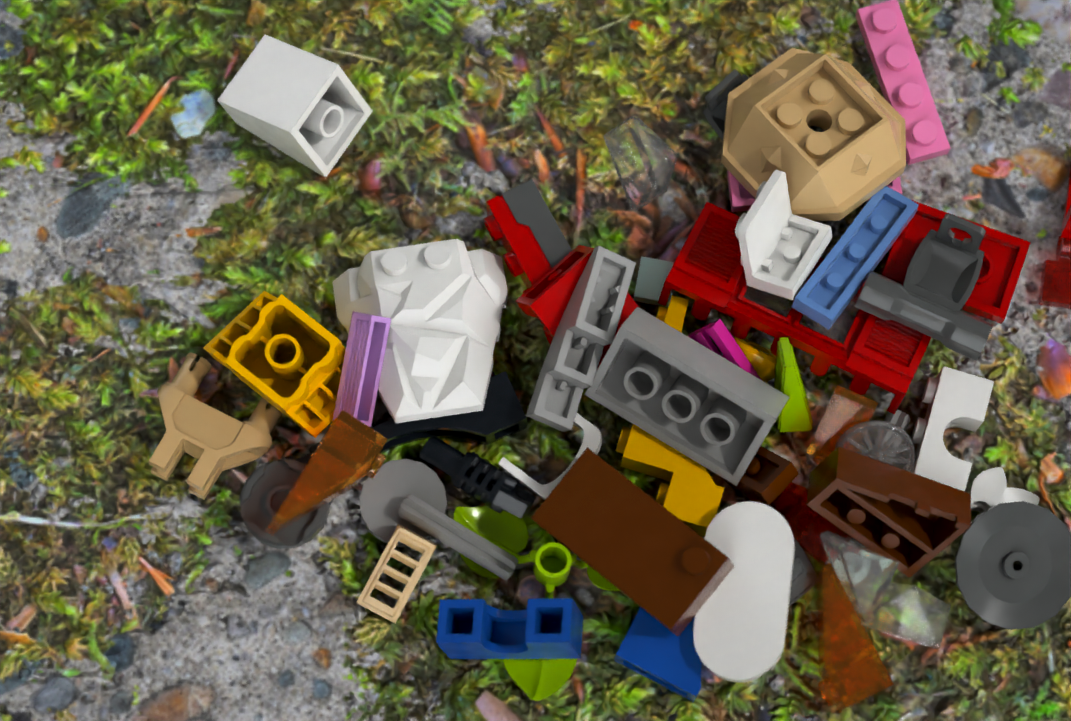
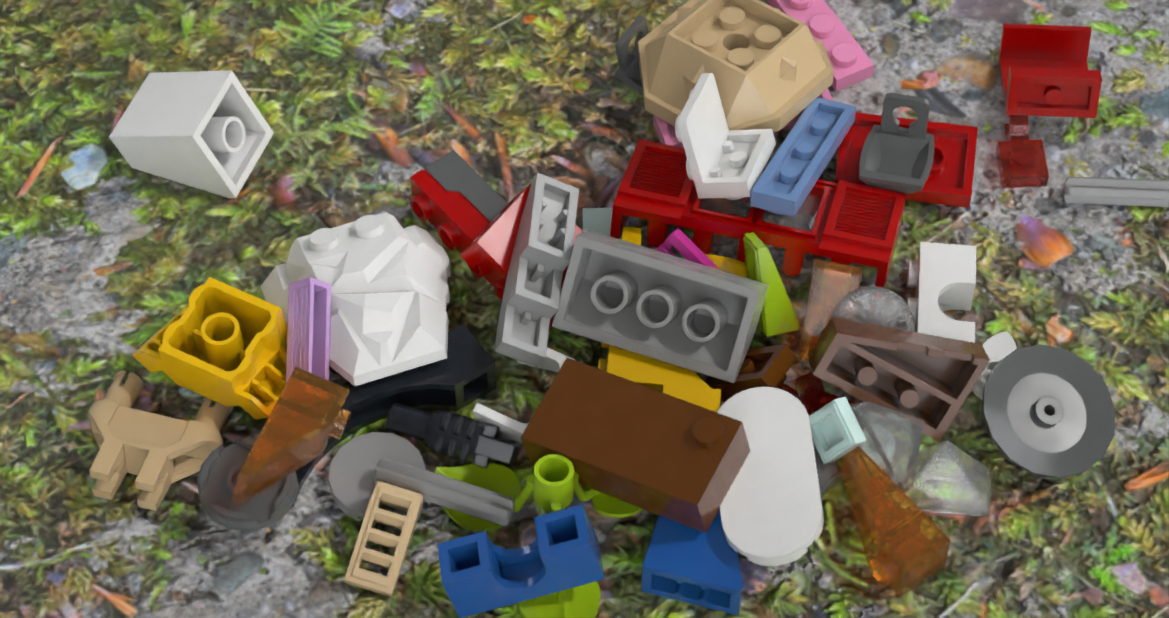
camera: 10 degrees left, 20 degrees down
(640, 161) = (560, 127): clear slope -> none
(816, 558) = (835, 430): none -> light aqua tile
(952, 328) = (852, 184): dark grey axle -> none

